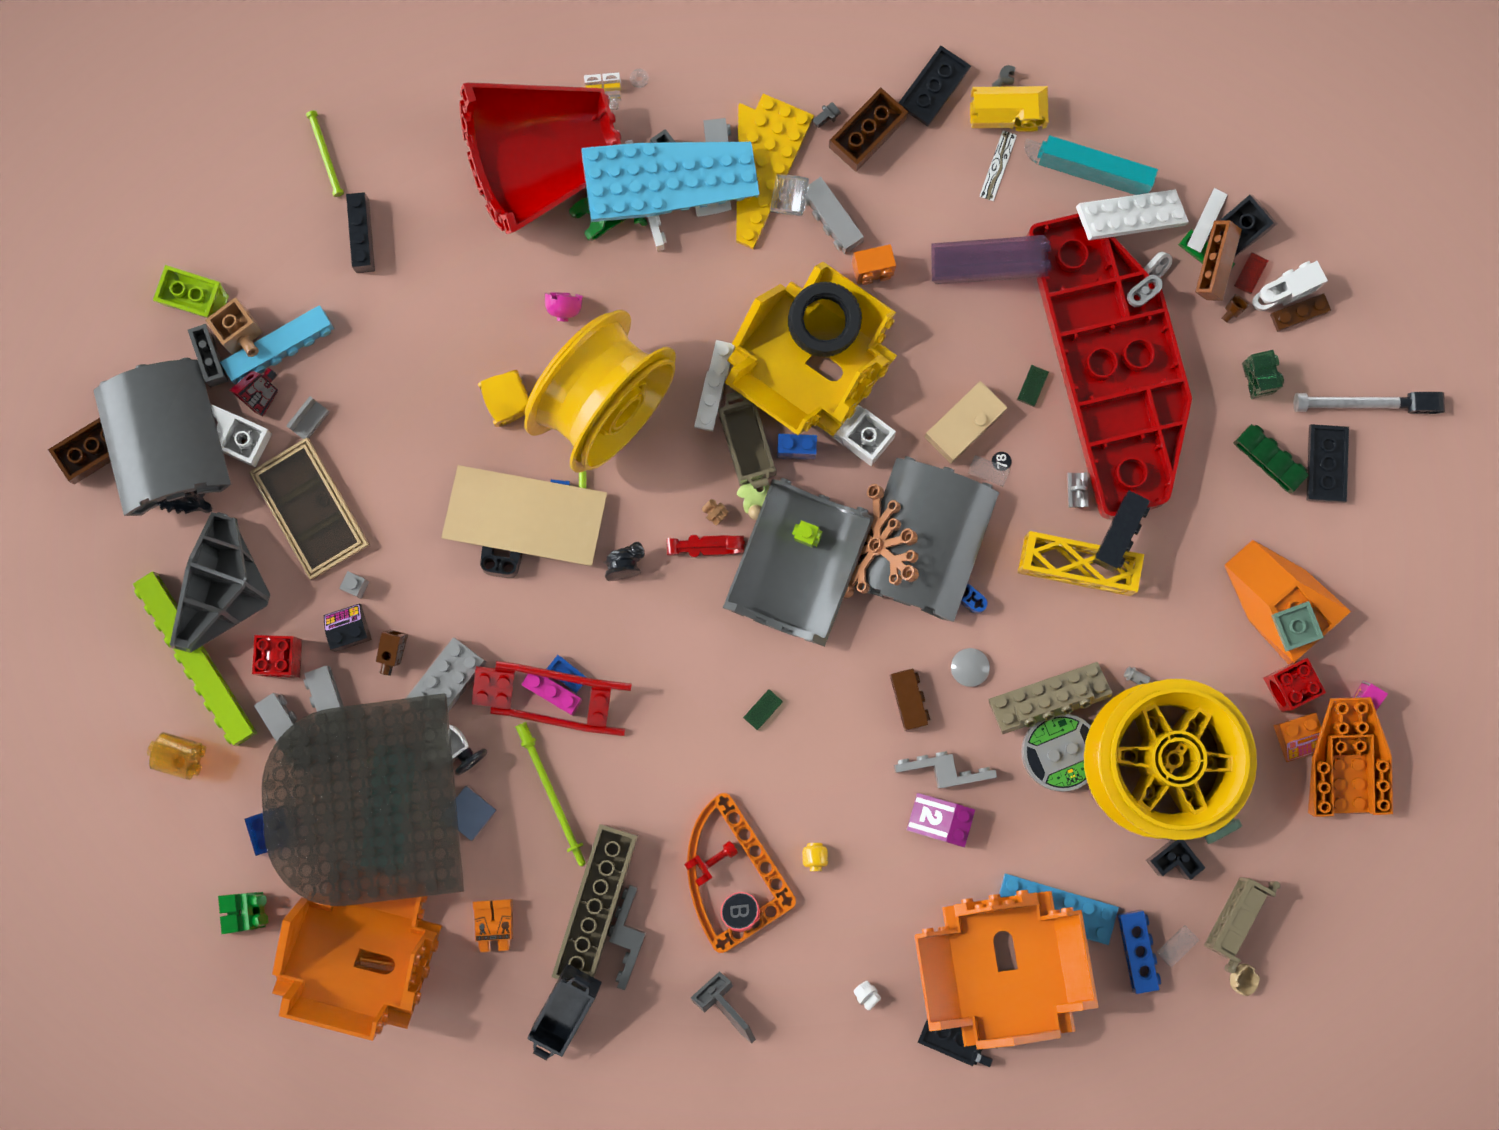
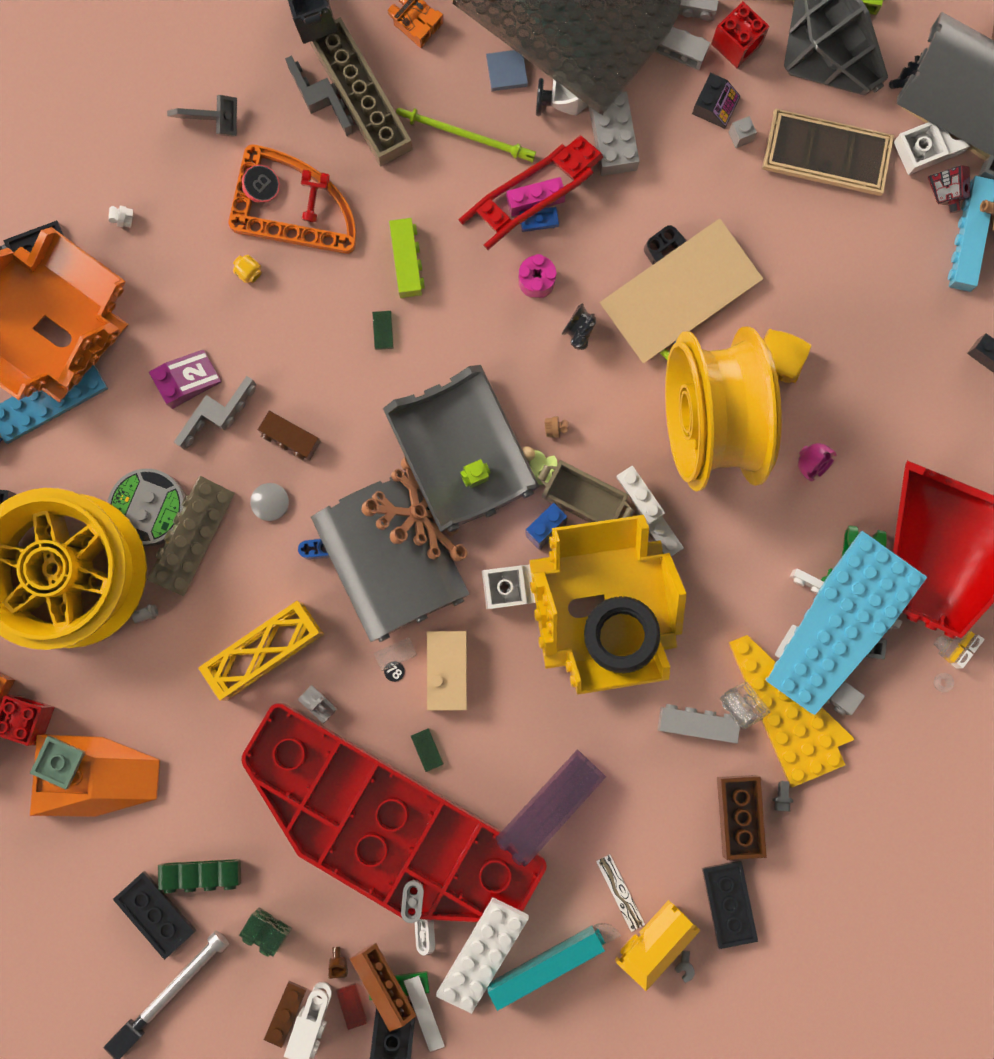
camera: 130 degrees right, 0 degrees up
(308, 418) = (897, 207): light grey panel -> none
(393, 643) = (672, 115): reddish brown torso -> none
(605, 638) = (538, 266): none -> dark pink brick
(692, 744) = (405, 257): none -> lime brick
(707, 545) = (537, 399): red piece -> none
(873, 264) = (630, 717): orange brick -> none
(1119, 535) = (251, 698): black brick -> none

